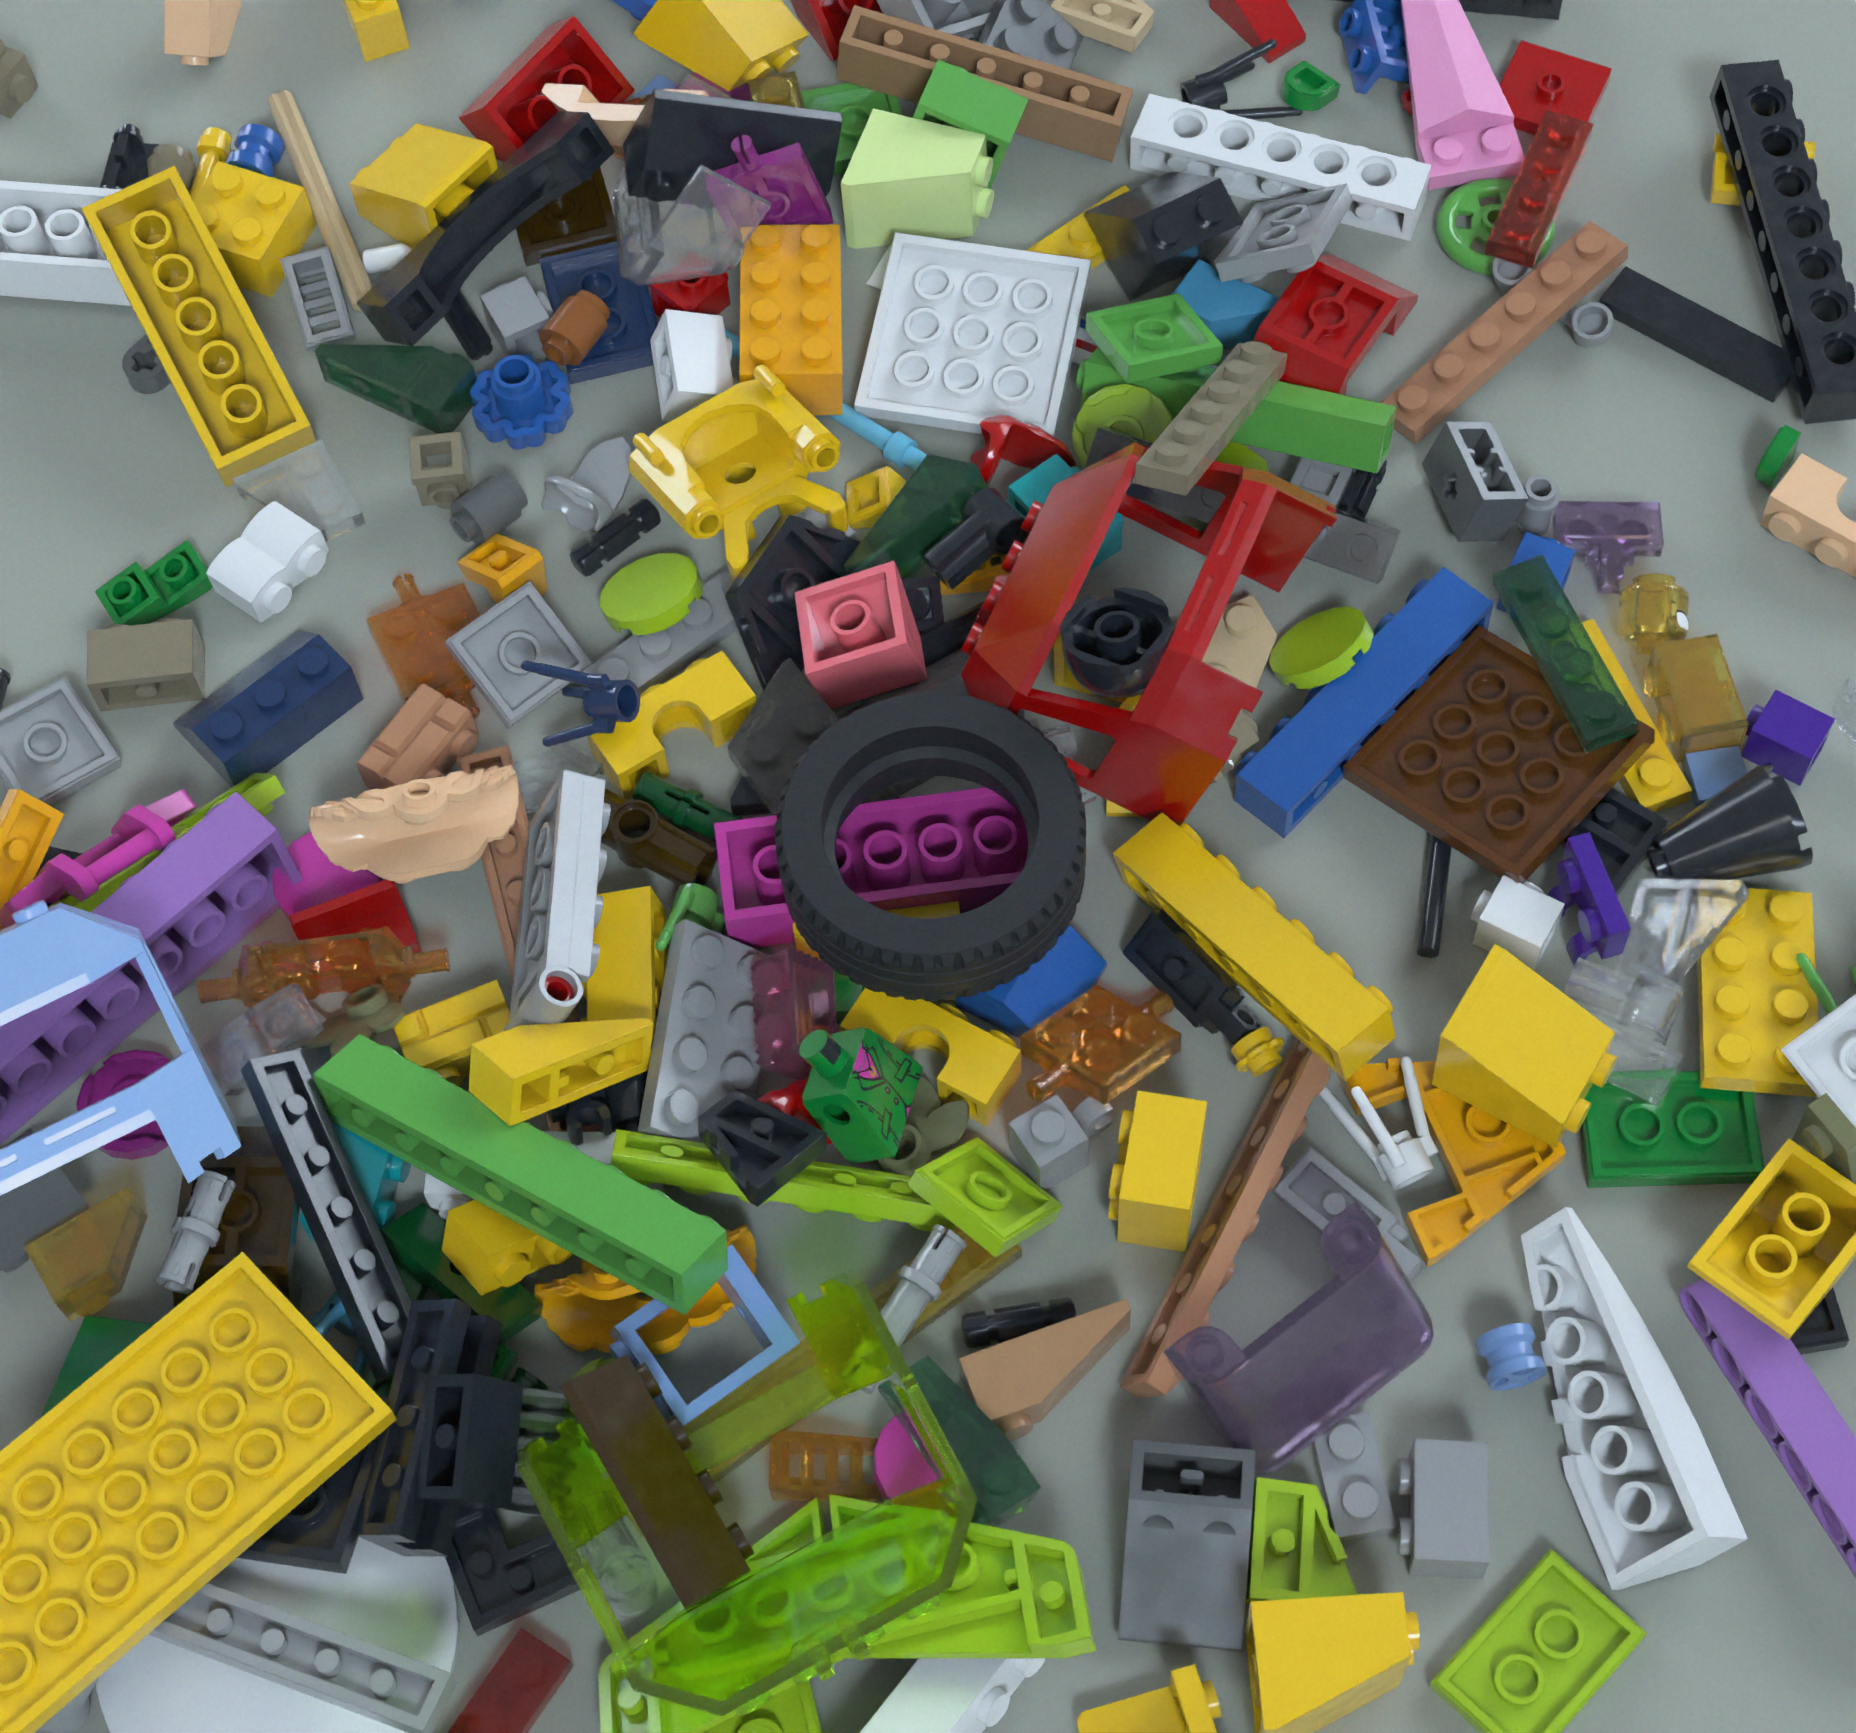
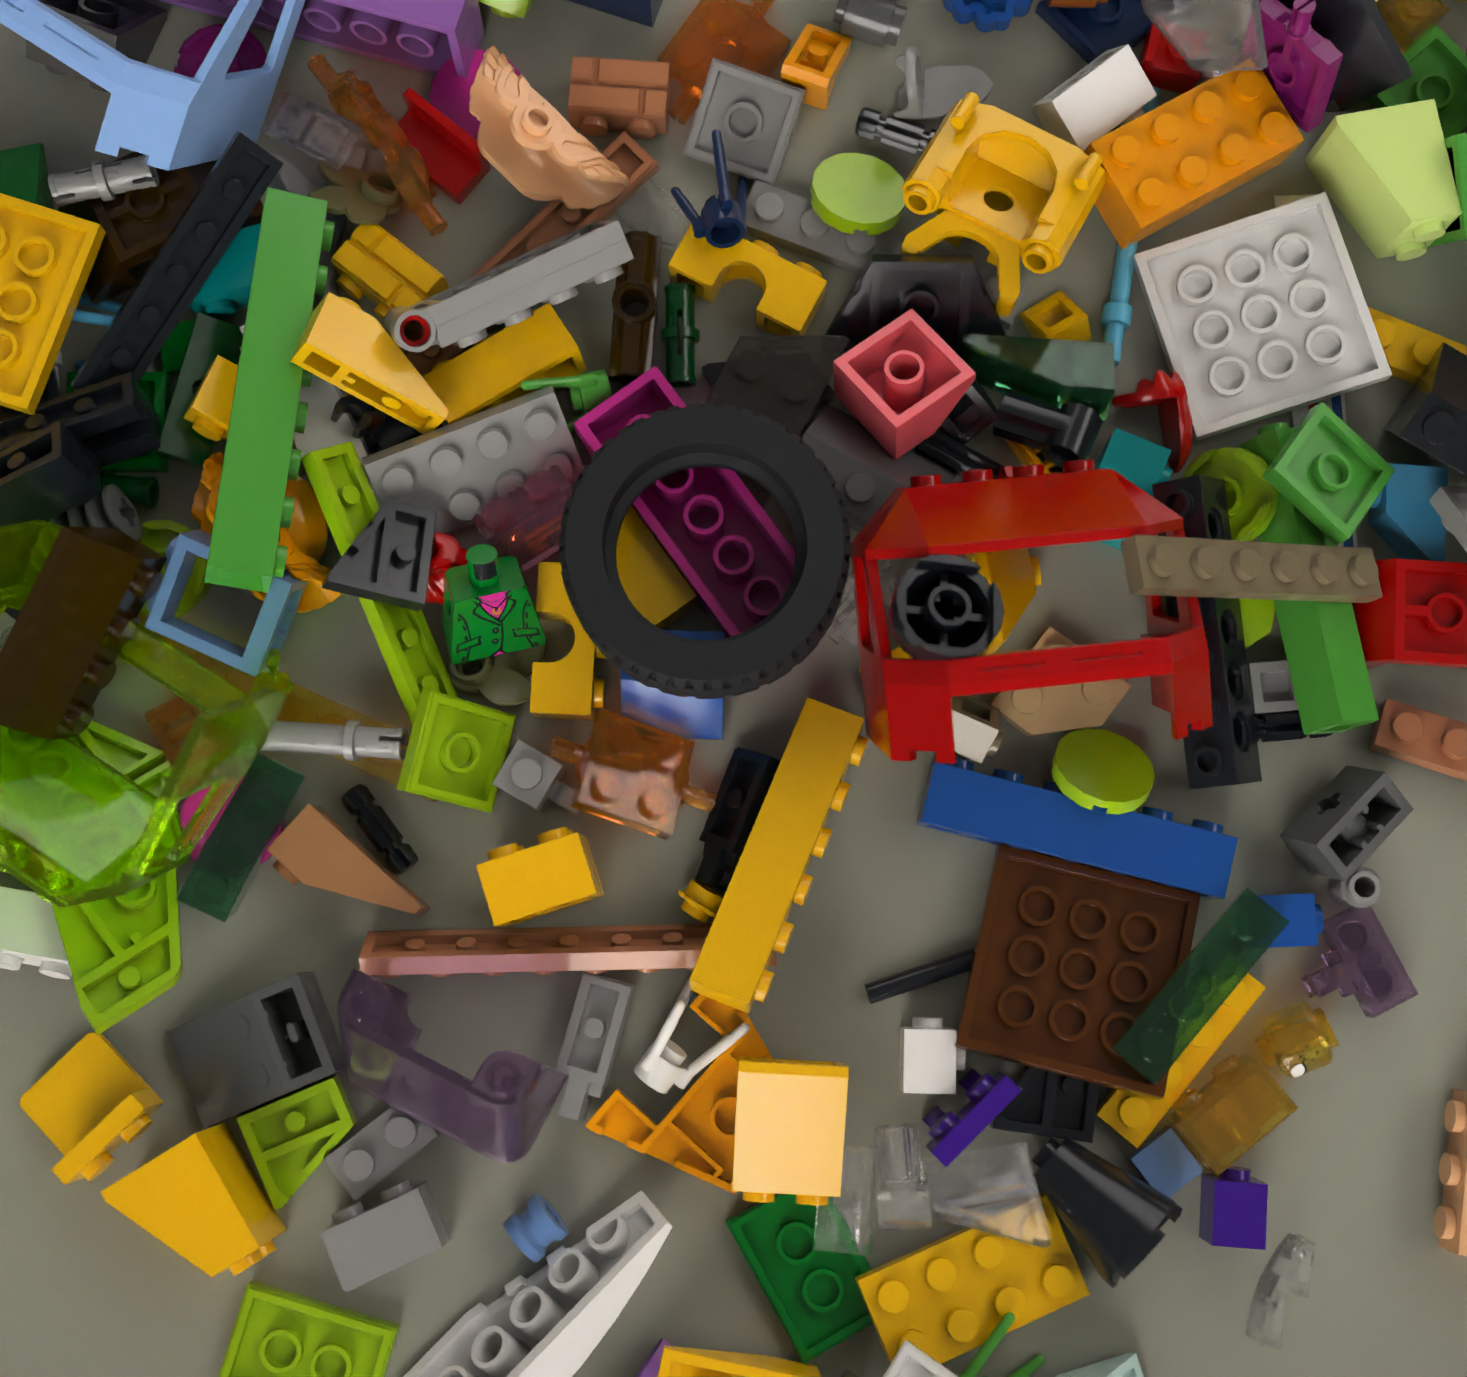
camera: 60 degrees right, 20 degrees up
(90, 1254) = (66, 112): clear yellow slope -> none

